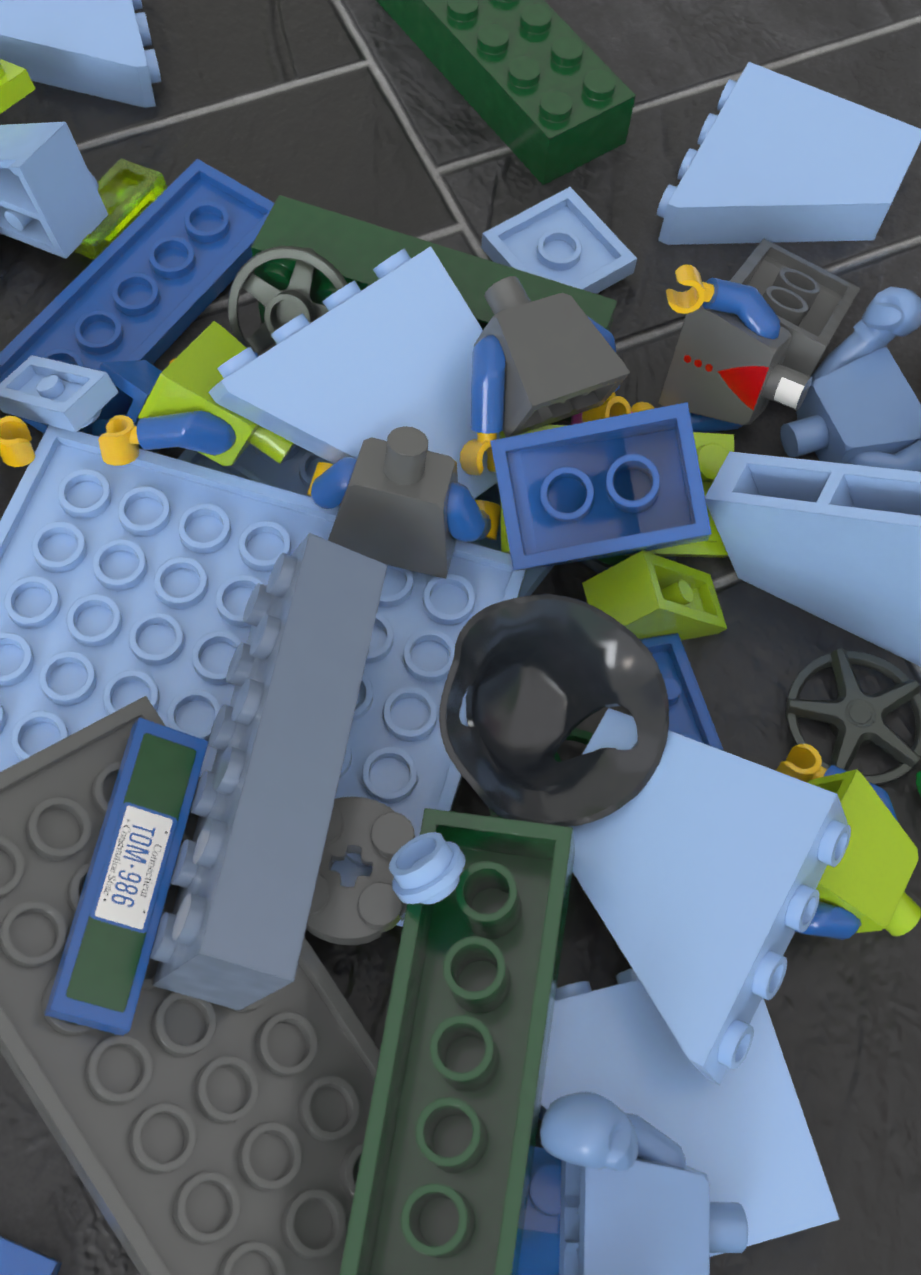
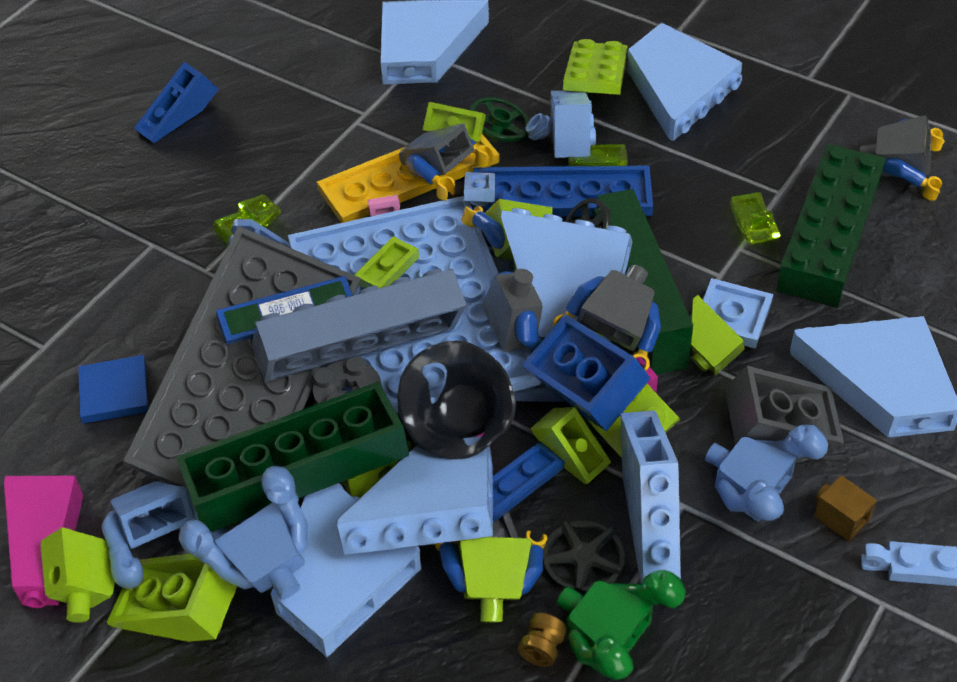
camera: 65 degrees right, 15 degrees down
(122, 638) = (388, 264): none -> lime plate
(413, 124) = (754, 219): none -> clear neon green slope
(426, 869) = (347, 387): light blue plate -> none
(635, 289) = (712, 339): none -> lime slope
(727, 355) = (717, 392): torso -> none

